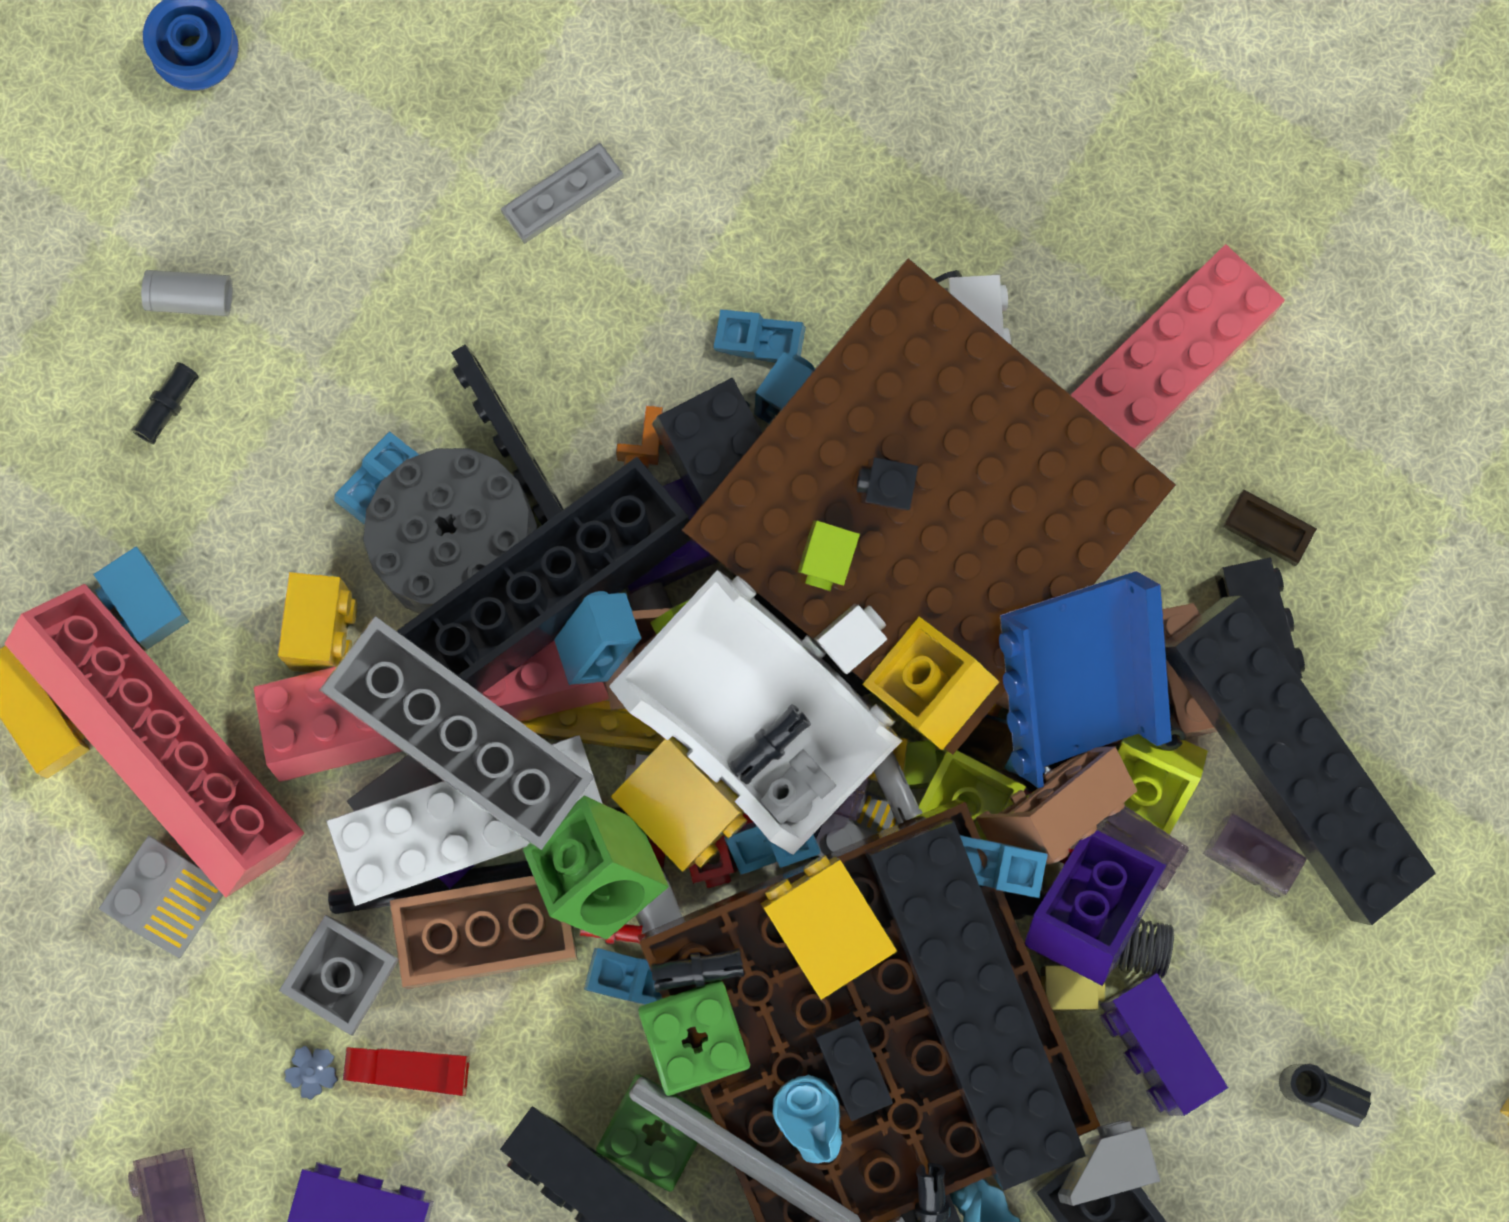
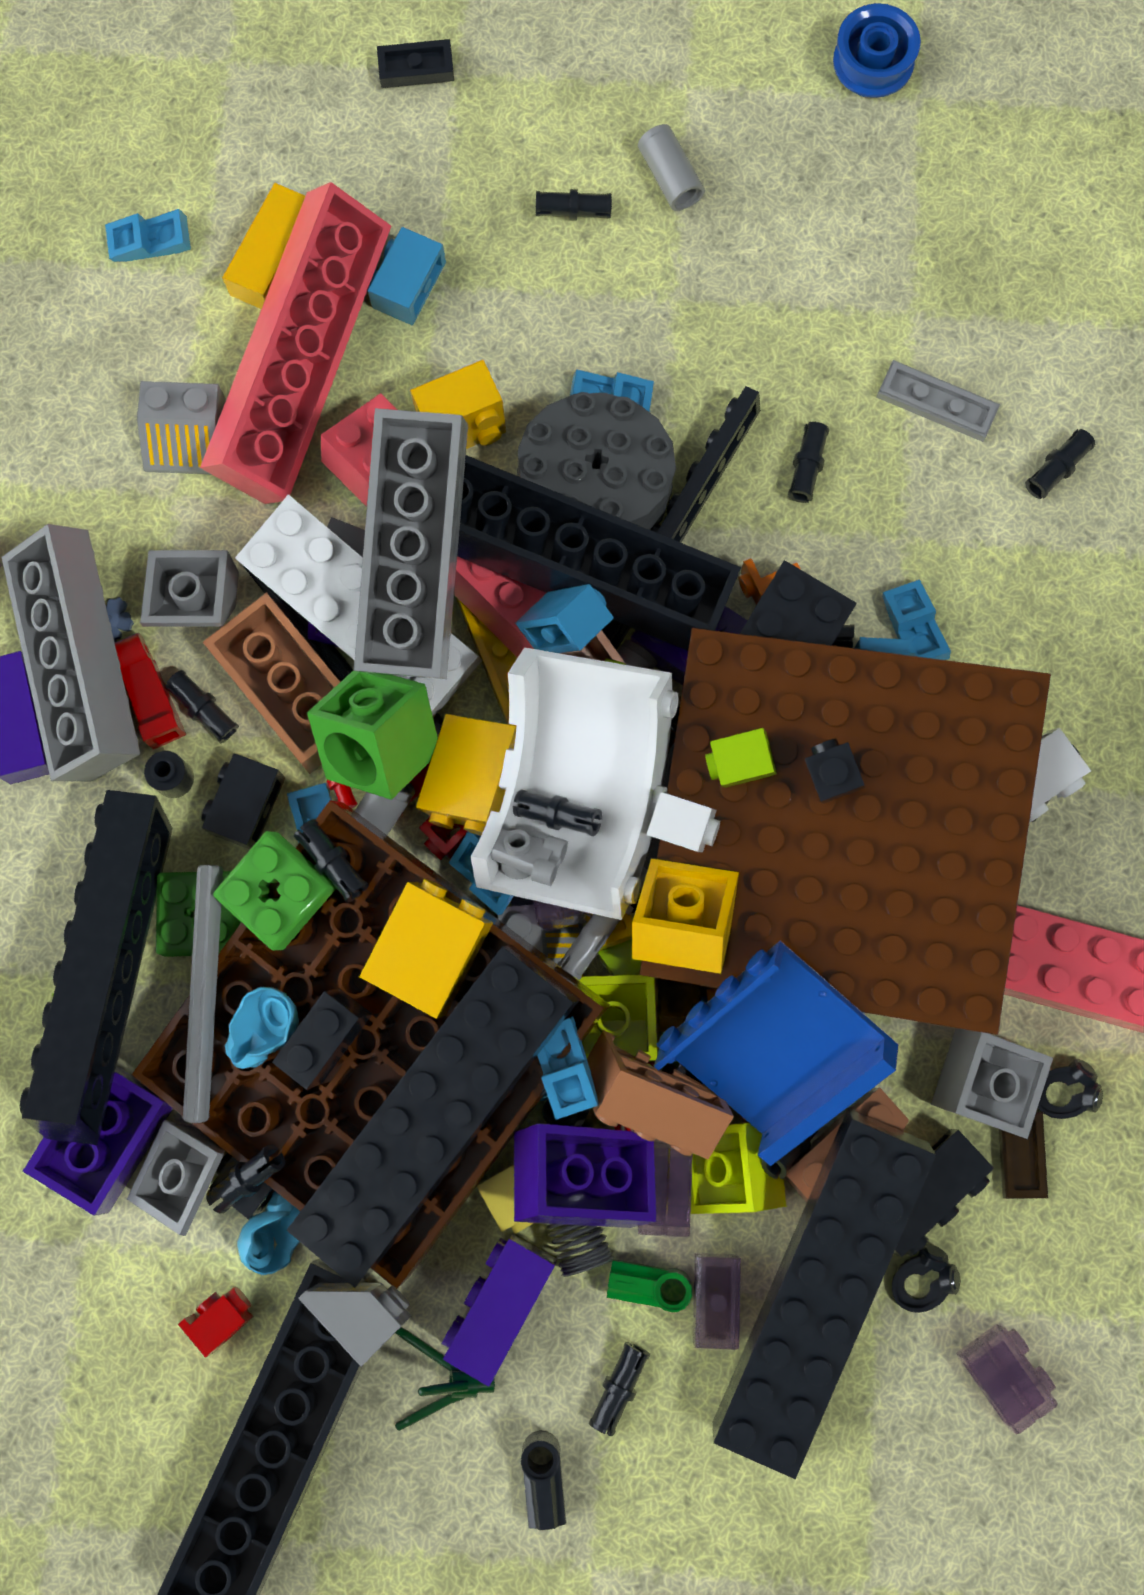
camera: 70 degrees right, 0 degrees up
(334, 1121) = (70, 654): none -> light grey brick
(454, 1026) = (201, 706): none -> black pin
(520, 1089) = (179, 779): none -> black brick
(552, 340) = (808, 462): none -> black pin
(571, 1035) = (242, 801): none -> black brick
(687, 125) = (1060, 463): none -> black pin
(1199, 516) = (992, 1081): none -> light grey slope
(1207, 1123) = (459, 1386): none -> dark green plant
(1208, 911) = (643, 1285): none -> green piece
(1226, 439) = (1087, 1100): none -> black piece
(1282, 983) = (619, 1389): none -> black pin
(1314, 657) = (928, 1259): none -> black piece
(1445, 650) = (1007, 1377): none -> clear purple brick

